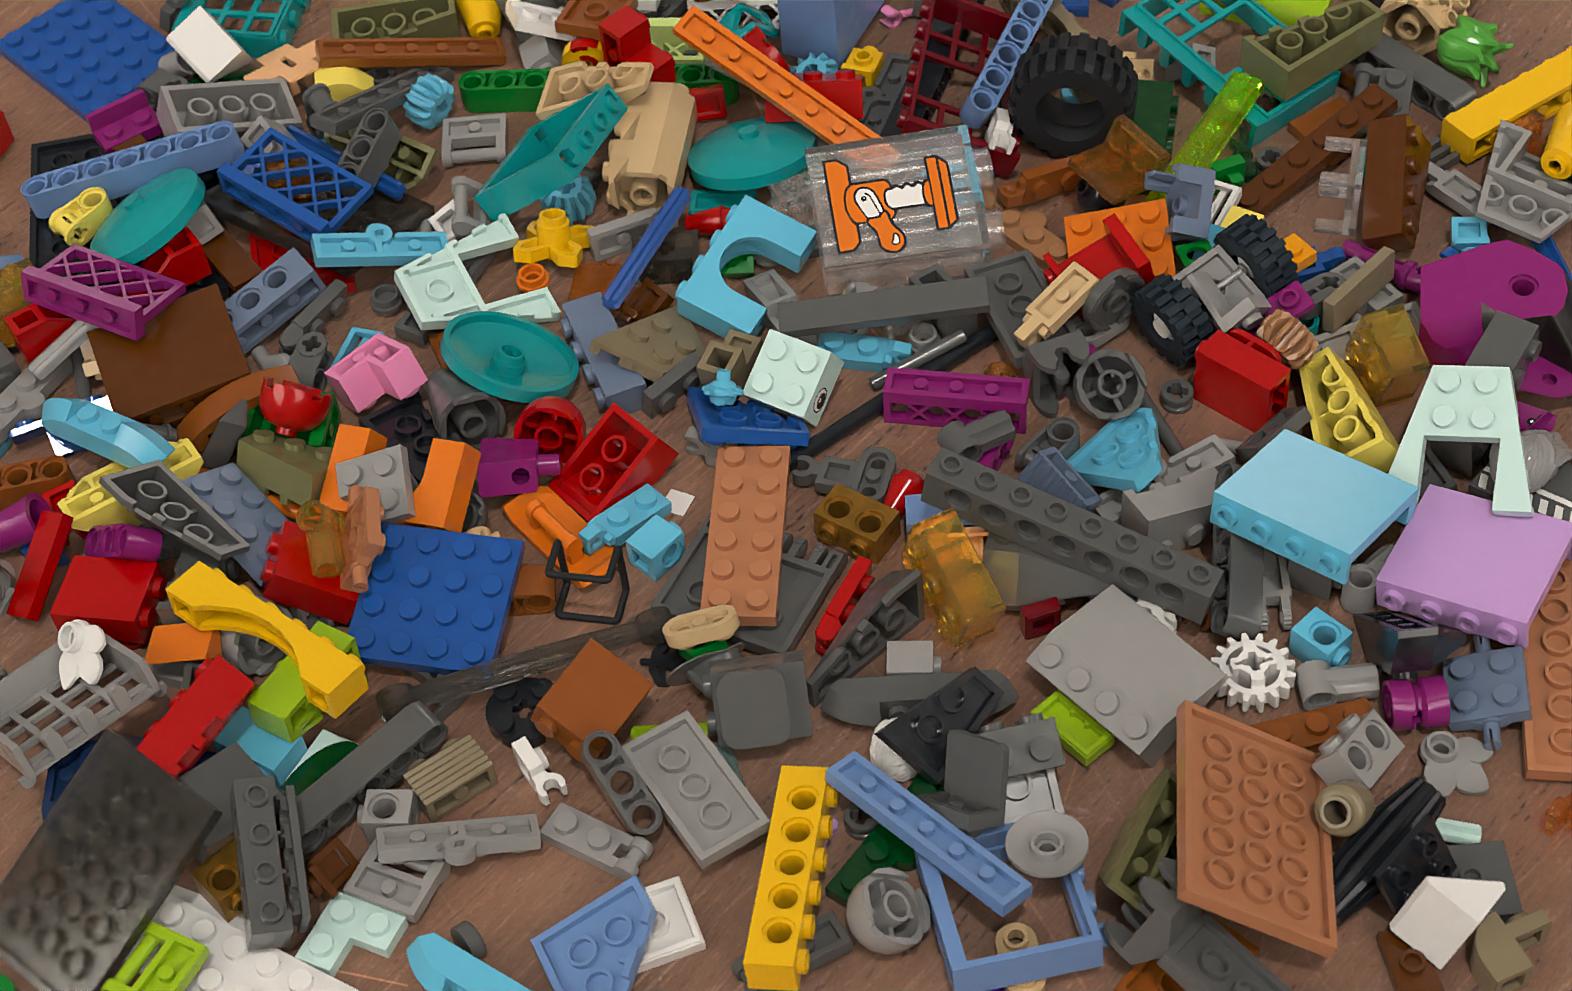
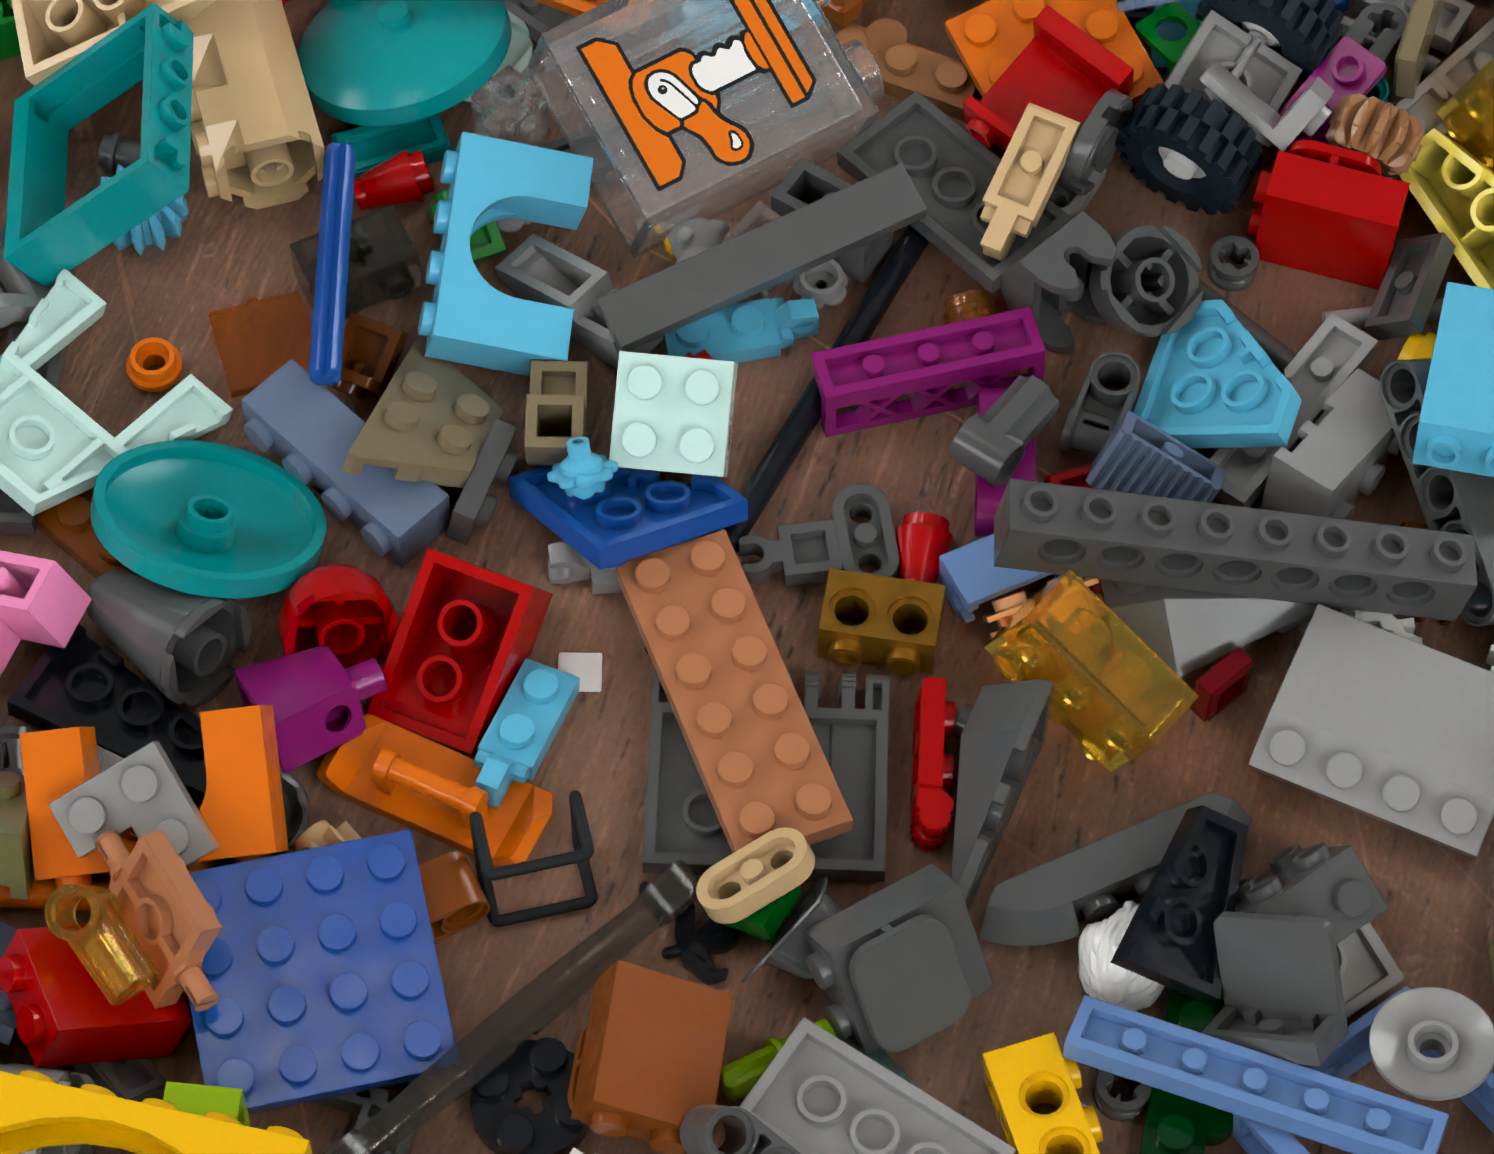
camera: 30 degrees left, 10 degrees up
(552, 239) = (157, 287): yellow plant -> none
(615, 236) = (265, 243): light grey hinge -> none
(656, 547) = (599, 760): medium azure brick -> none
(912, 658) = (1076, 818): light grey brick -> none
(922, 356) = (832, 320): dark grey bar -> none
(1076, 729) = (1376, 842): lime plate -> none

